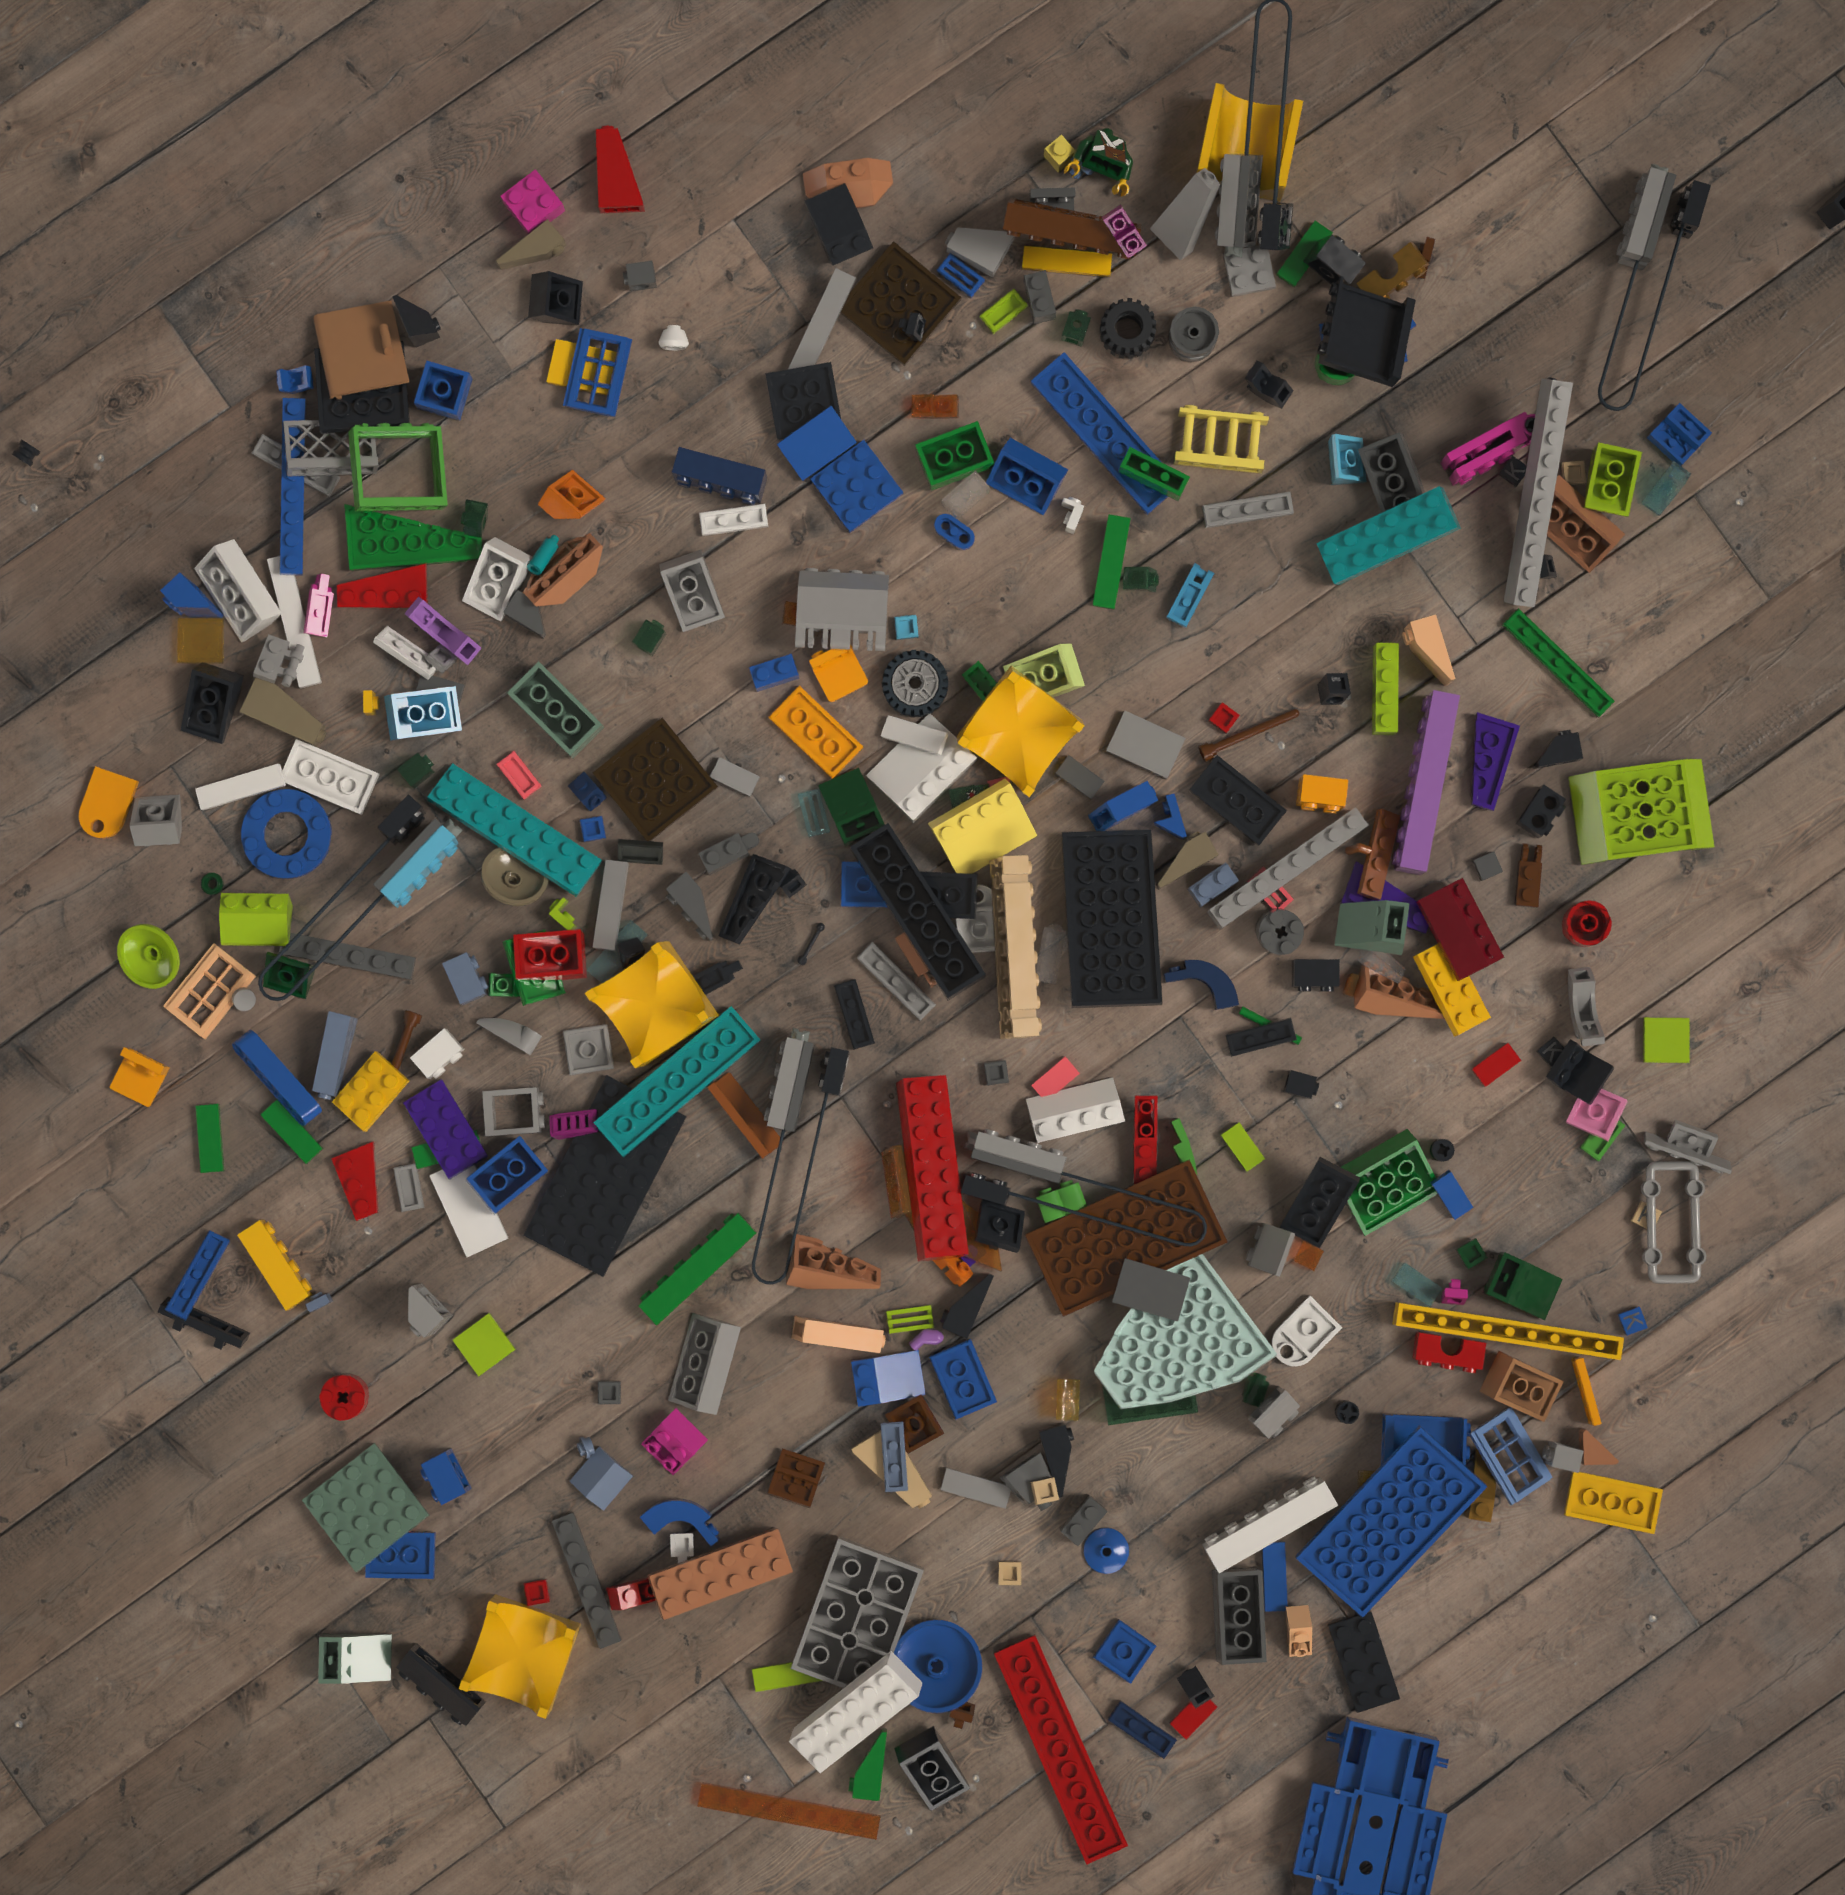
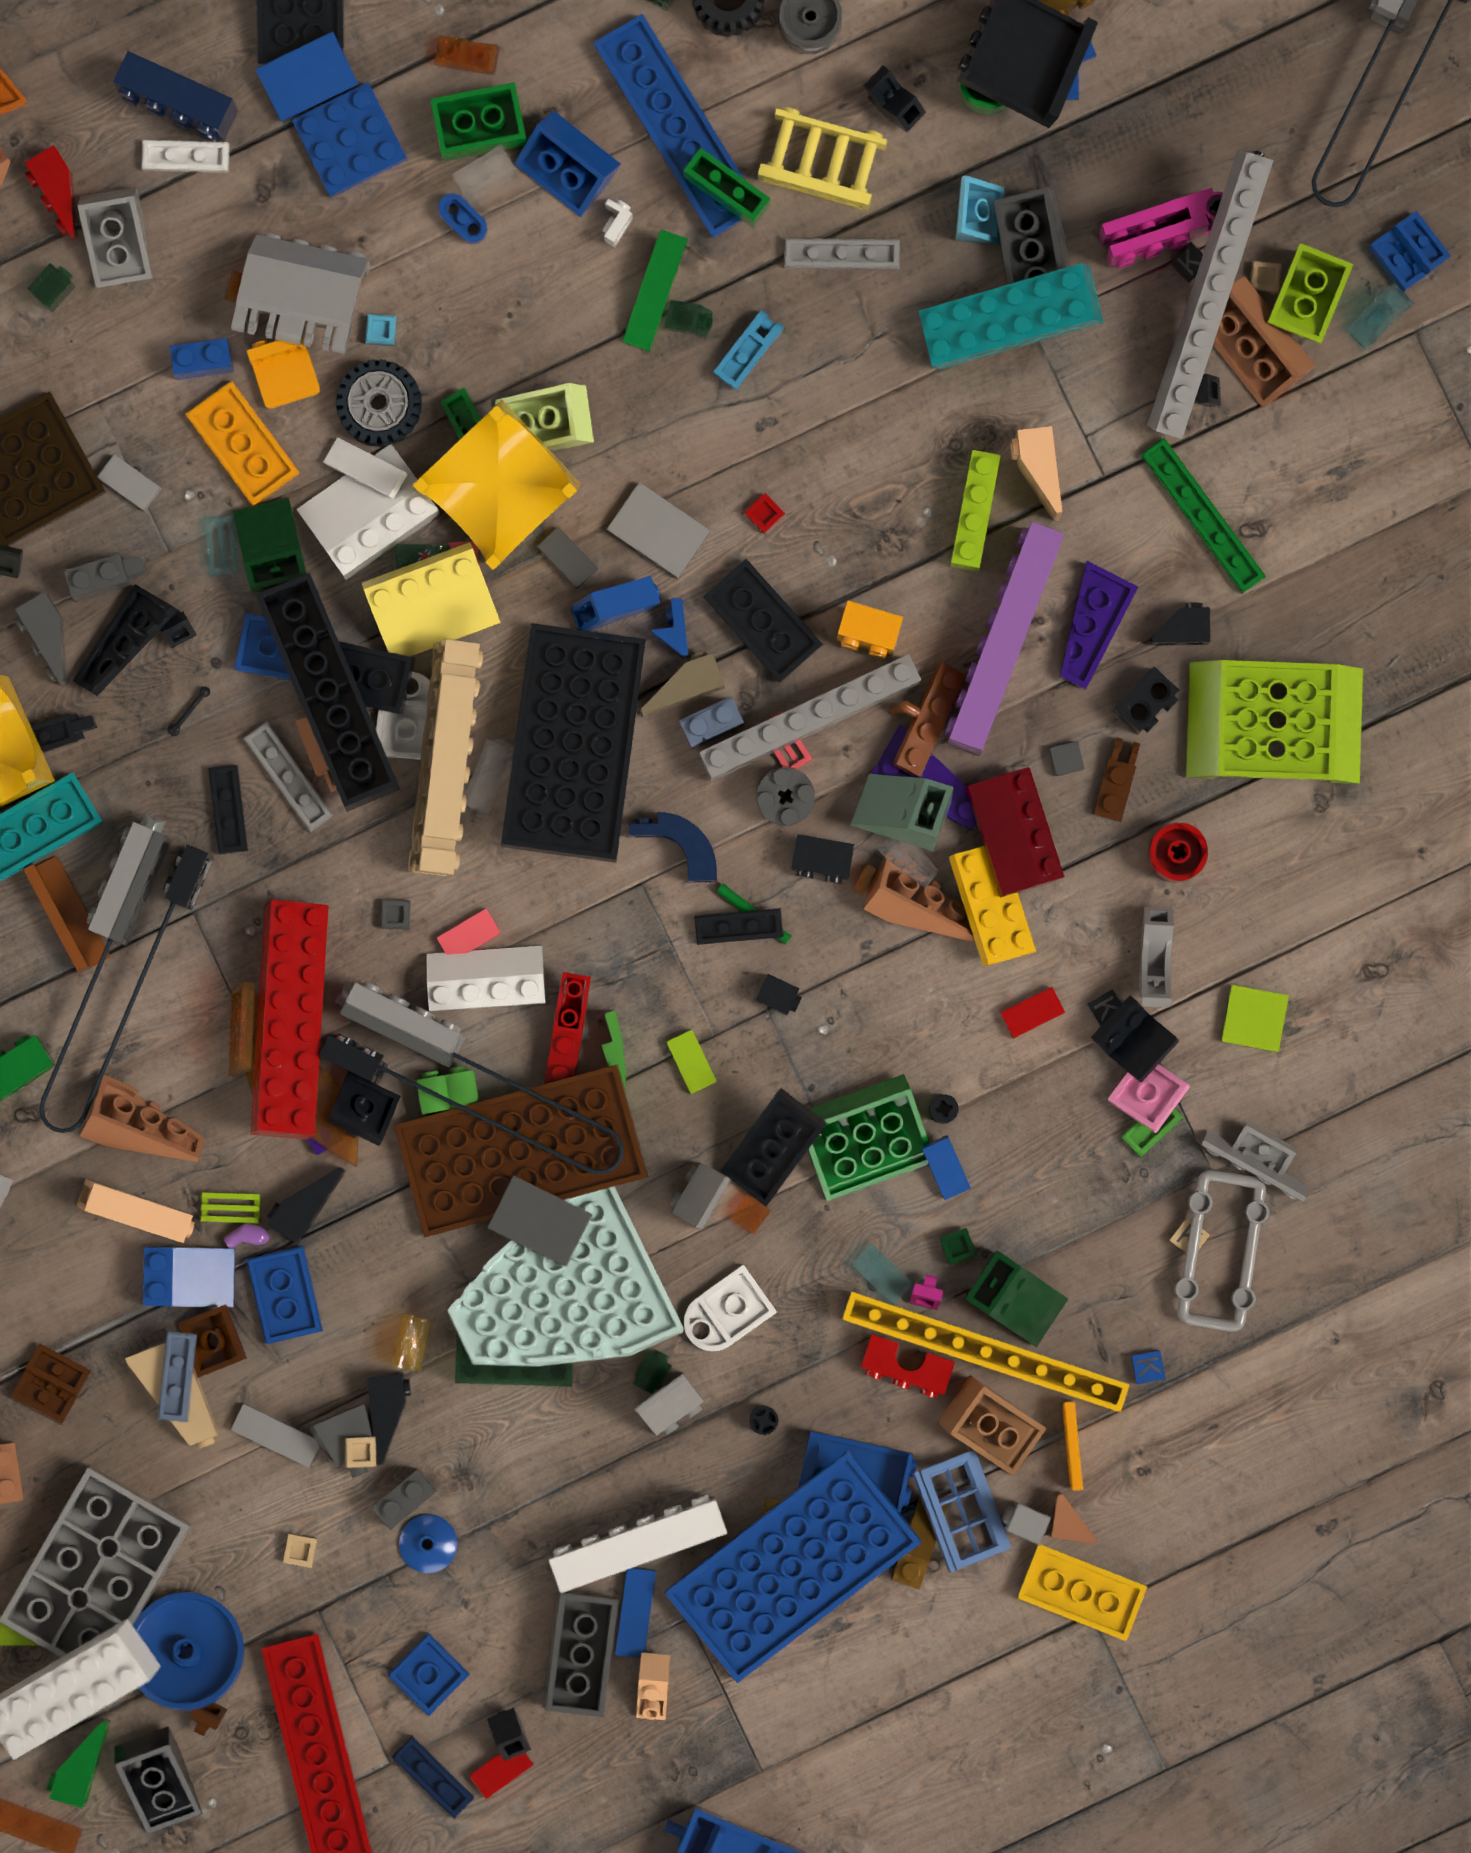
camera: 10 degrees right, 0 degrees up
(637, 555) = (56, 183): none -> red slope
(958, 1272) = (302, 1156): orange hinge -> none
(1209, 750) = (738, 551): reddish brown piece -> none
(1334, 688) = (909, 499): black brick -> none
(1363, 1662) = (729, 1740): black plate -> none

